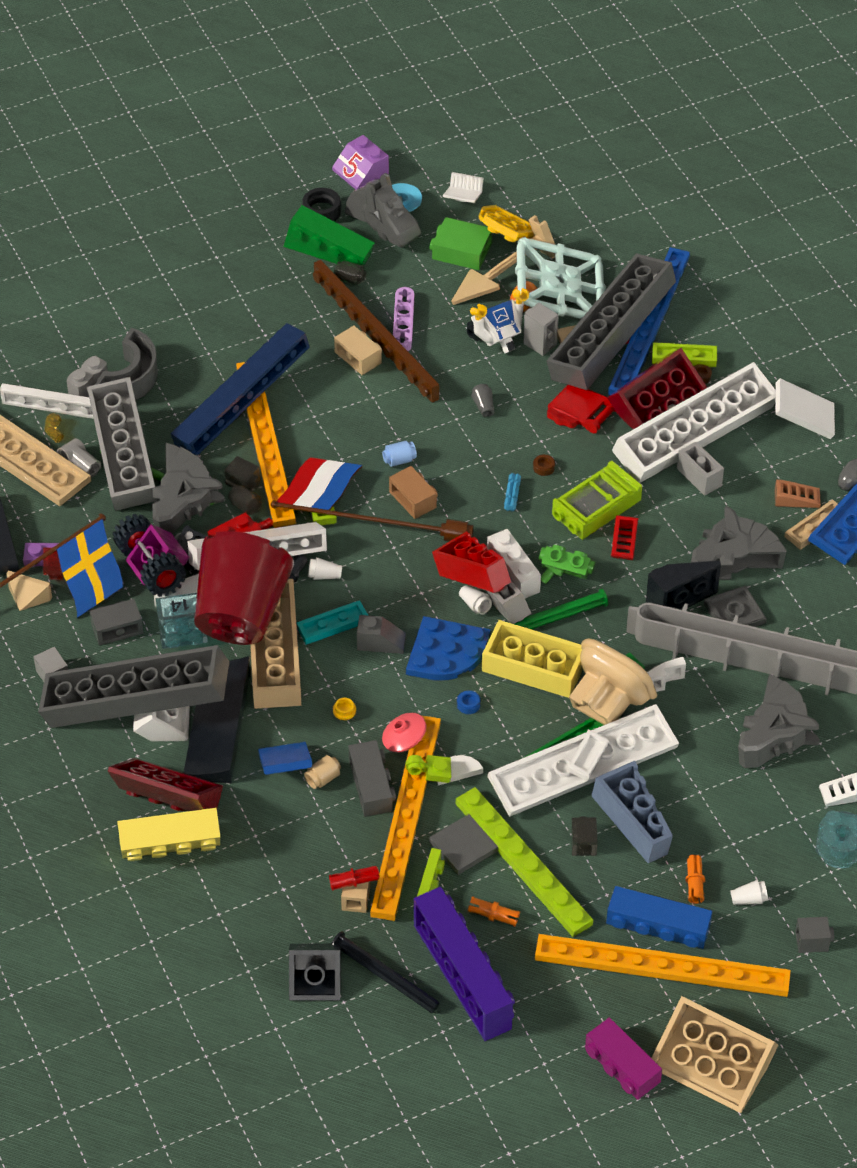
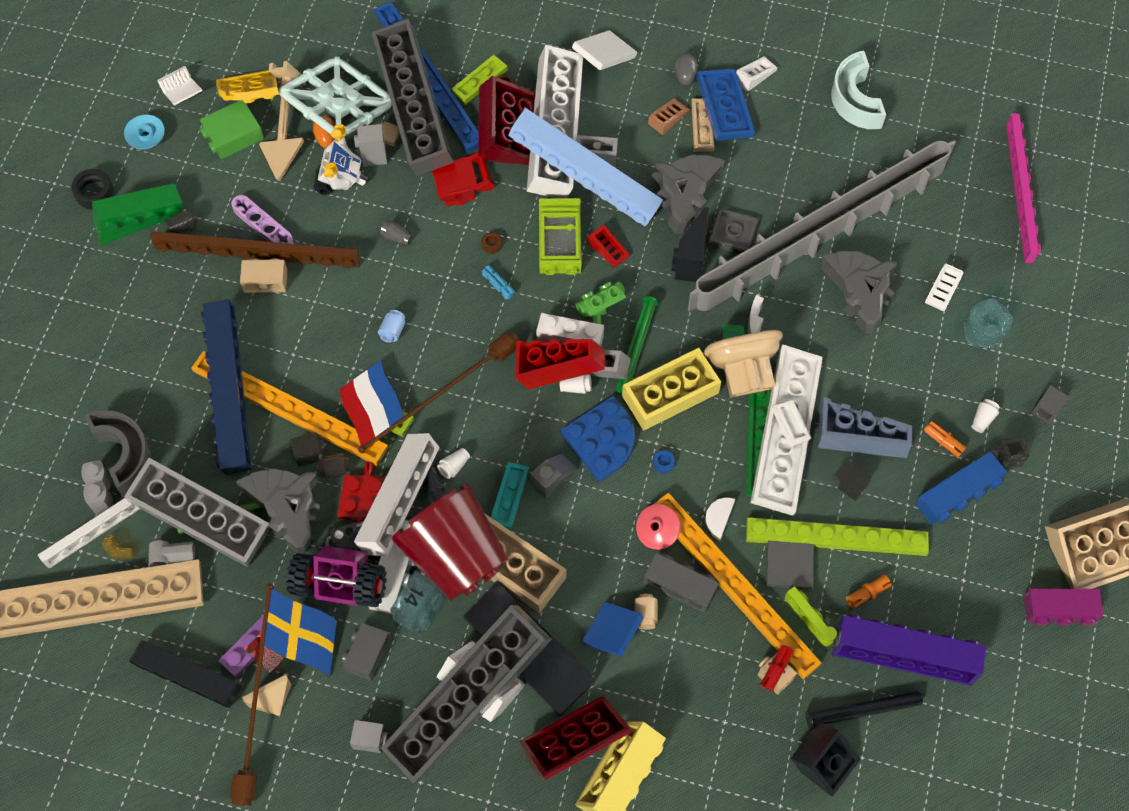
camera: 50 degrees left, 15 degrees up
(344, 709) = (597, 551): yellow plate -> none
(361, 162) = (80, 130): medium lavender slope -> none
(383, 211) = (150, 153): dark grey animal -> none
(413, 492) = (438, 346): medium nougat brick -> none
(435, 767) = (711, 533): lime plate -> none
(663, 965) = (999, 519): light orange plate -> none
(669, 465) = (585, 167): none -> light blue brick
(730, 930) = (1012, 452): none -> clear smoke brick

